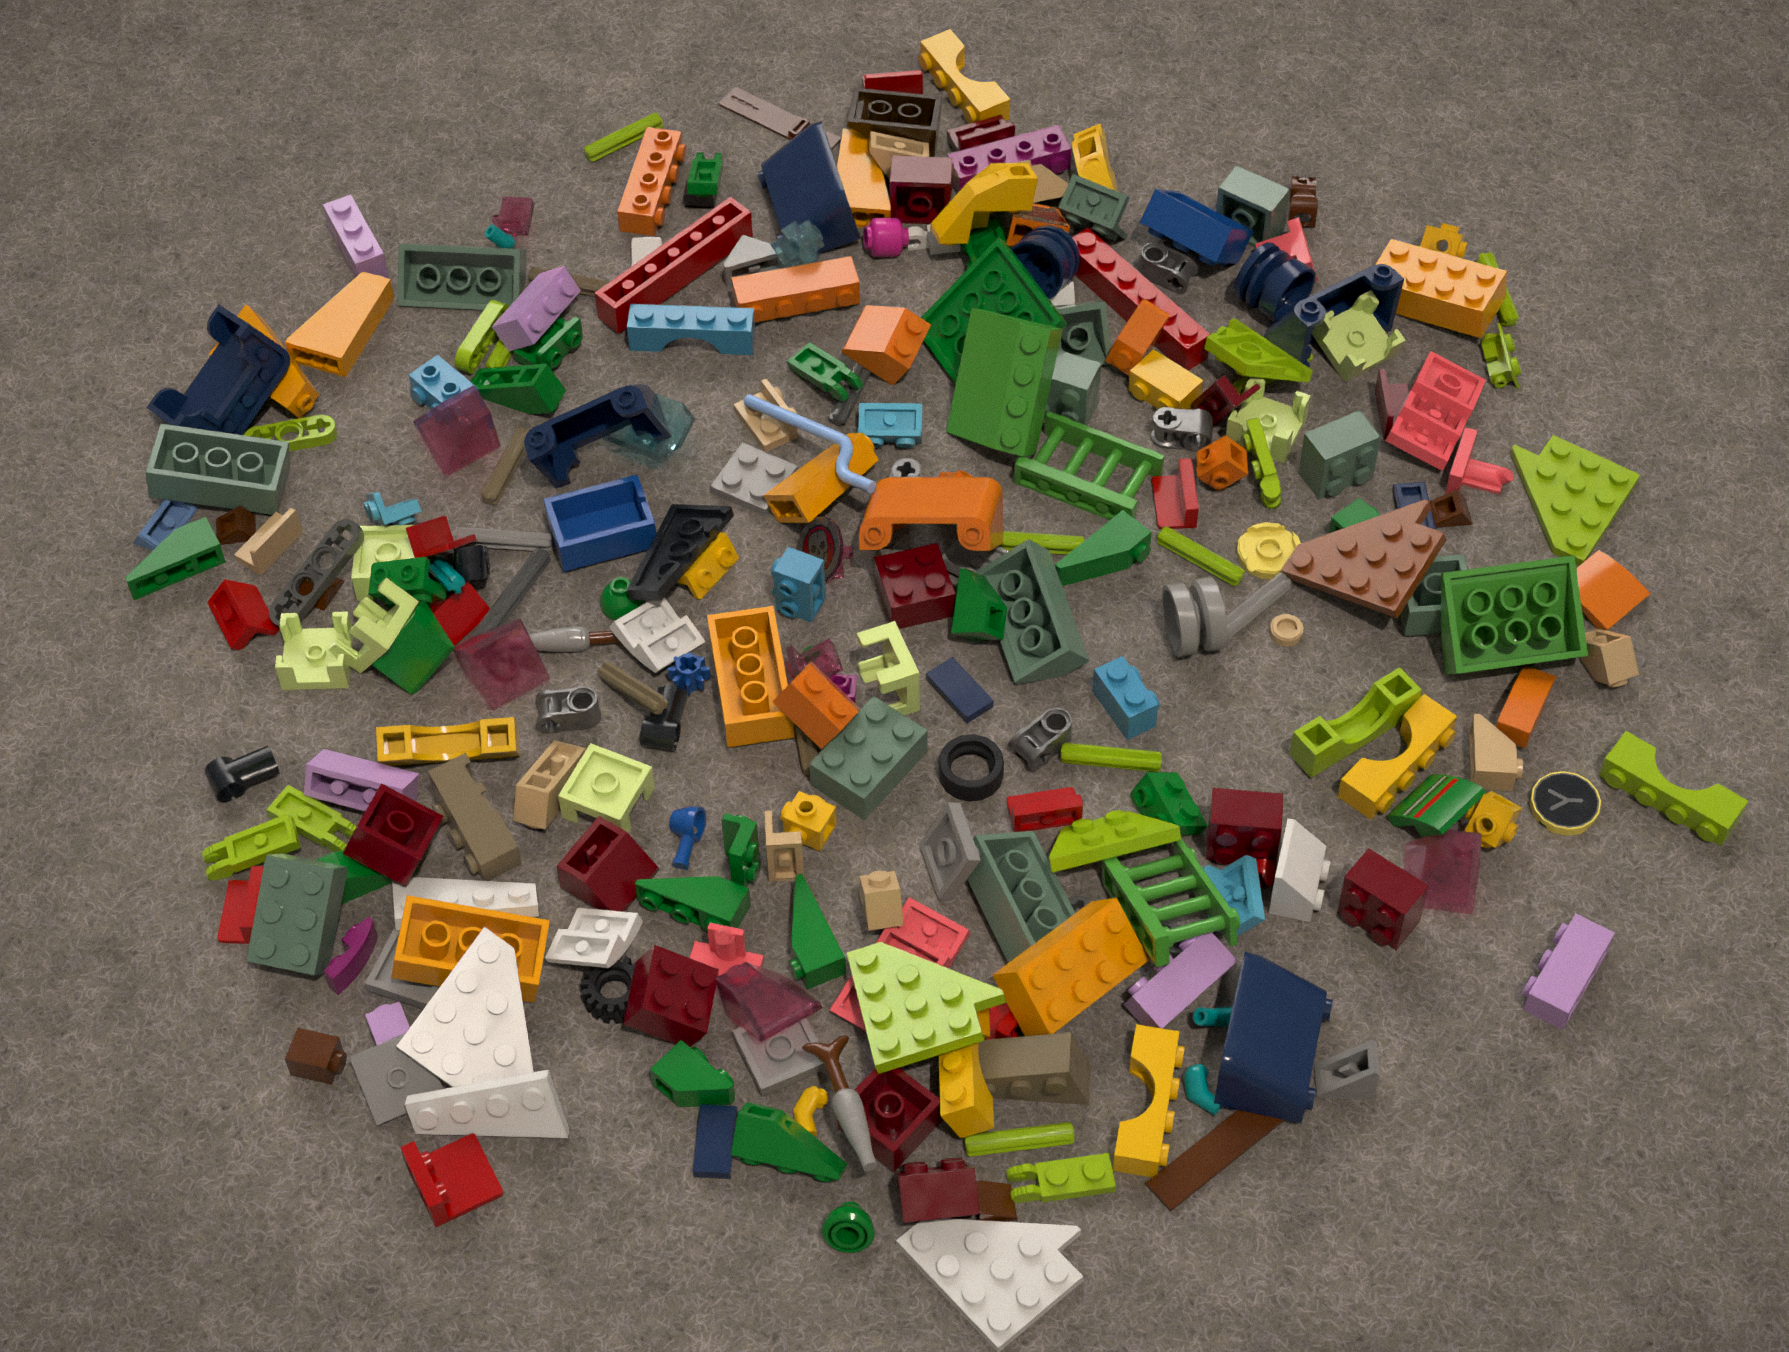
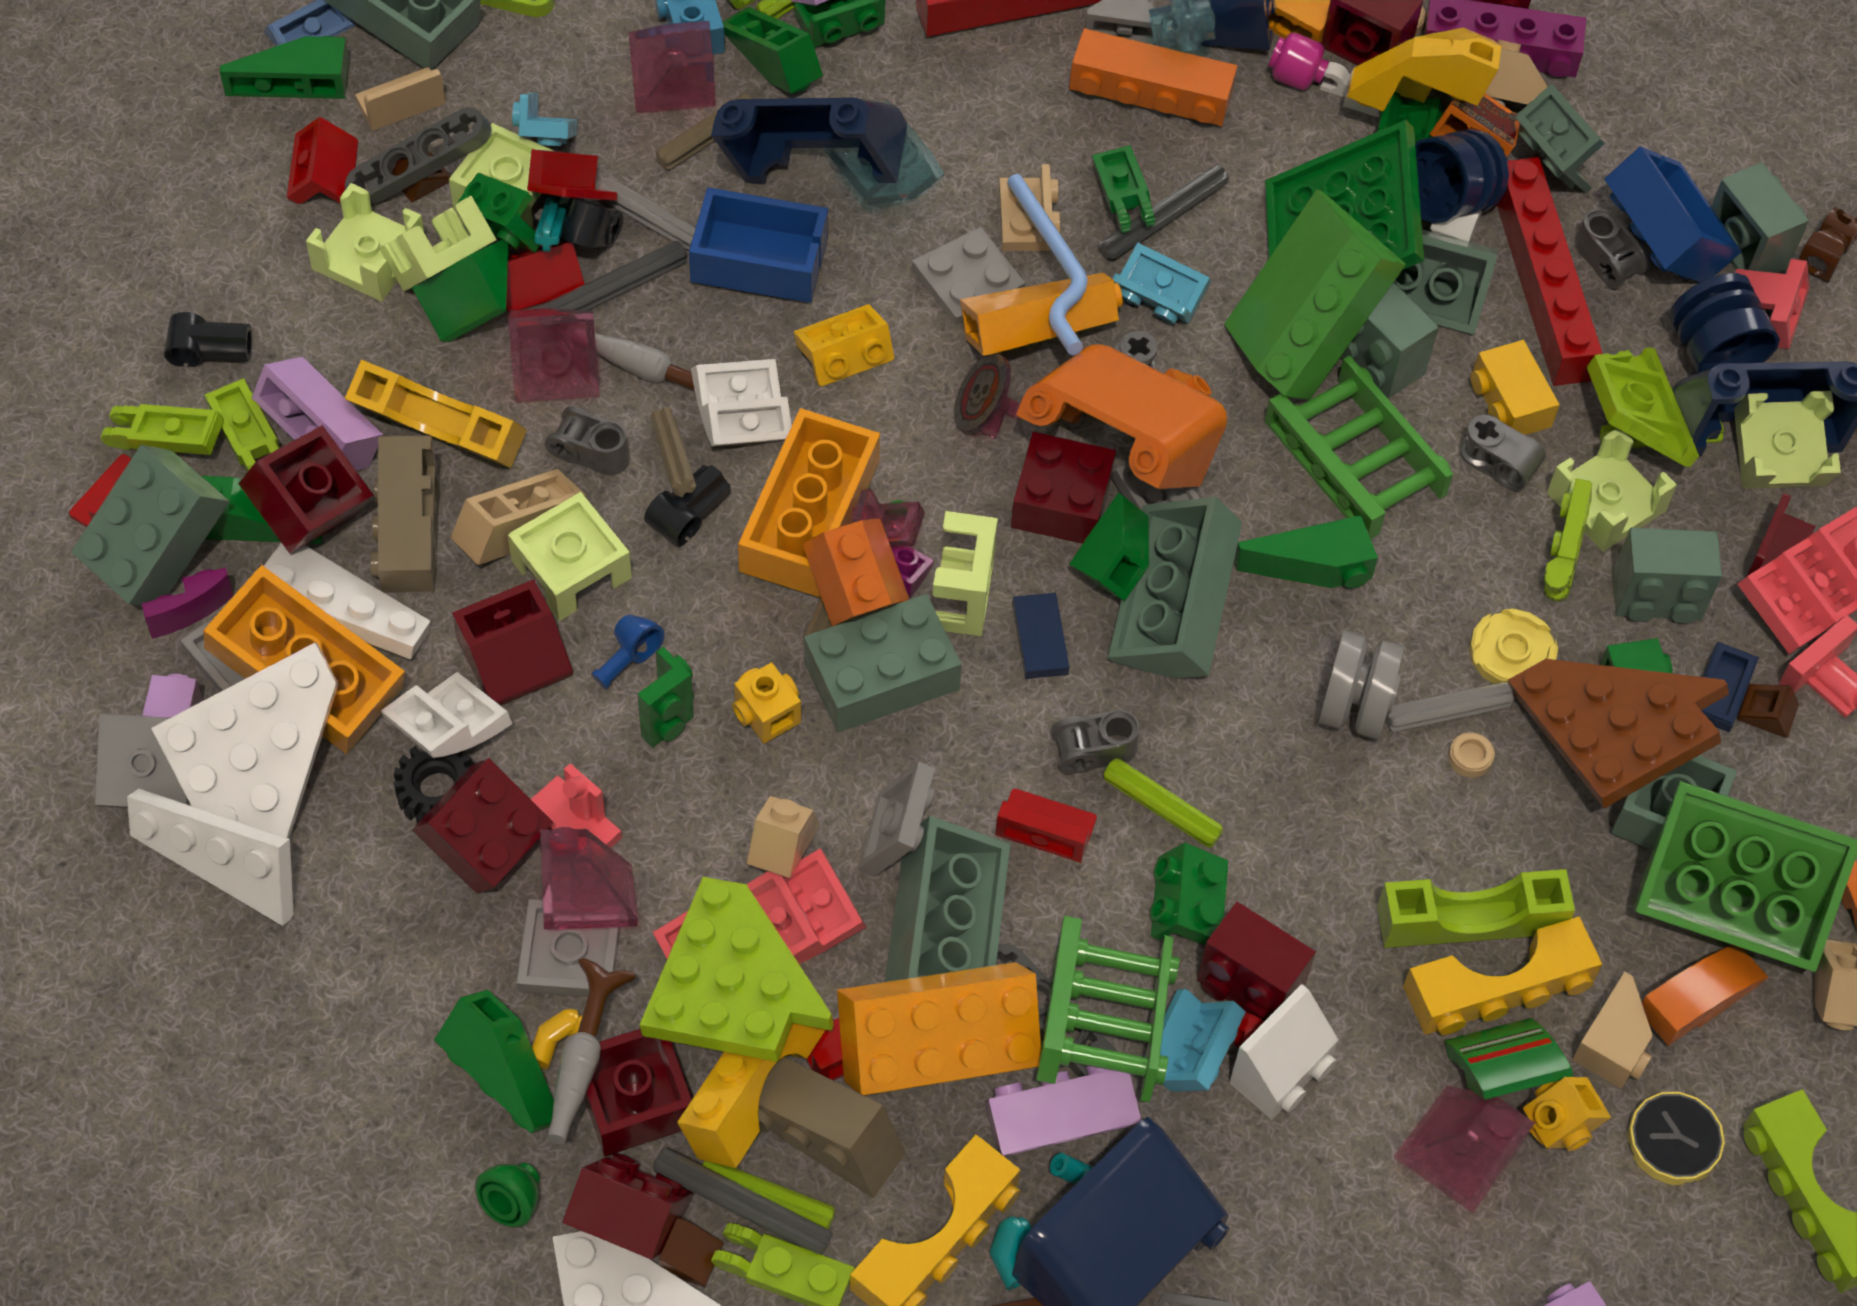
camera: 25 degrees right, 5 degrees up
(235, 526) = (379, 63): reddish brown slope -> none
(315, 1056) = (78, 693): reddish brown brick -> none
(452, 1178) = (128, 904): red bracket -> none
(615, 599) = (733, 342): green brick -> none
(676, 546) = (821, 313): black wing -> none
(689, 672) = (747, 464): blue gear -> none
(690, 1080) = (447, 929): green slope -> none
(696, 899) = (597, 736): green slope -> none
(715, 1141) = (426, 1015): dark blue tile -> none
(724, 327) = (1043, 84): dark azure arch -> none
(783, 852) = (707, 723): tan panel -> none
(798, 584) = (929, 422): dark azure brick -> none
(813, 945) = (681, 840): green slope -> none
(886, 340) = (1215, 183): orange slope -> none
(975, 789) = (992, 763): black tyre -> none
(1010, 1148) = (742, 1201): none -> dark grey axle
(1054, 543) = (1245, 506): lime axle -> none
(1092, 156) = (1601, 79): yellow slope -> none
(1109, 837) = (1088, 896): lime wing -> none
(1125, 697) = (1222, 740): dark azure brick -> none
(1137, 336) = (1512, 315): orange slope -> none
(1176, 498) = (1440, 532): panel -> none
(1200, 556) = (1425, 615): lime axle -> none
(1222, 399) = (1563, 440): dark red panel -> none
(1222, 463) = (1519, 516): orange brick -> none
(1382, 899) = (1362, 1139): dark red brick -> none

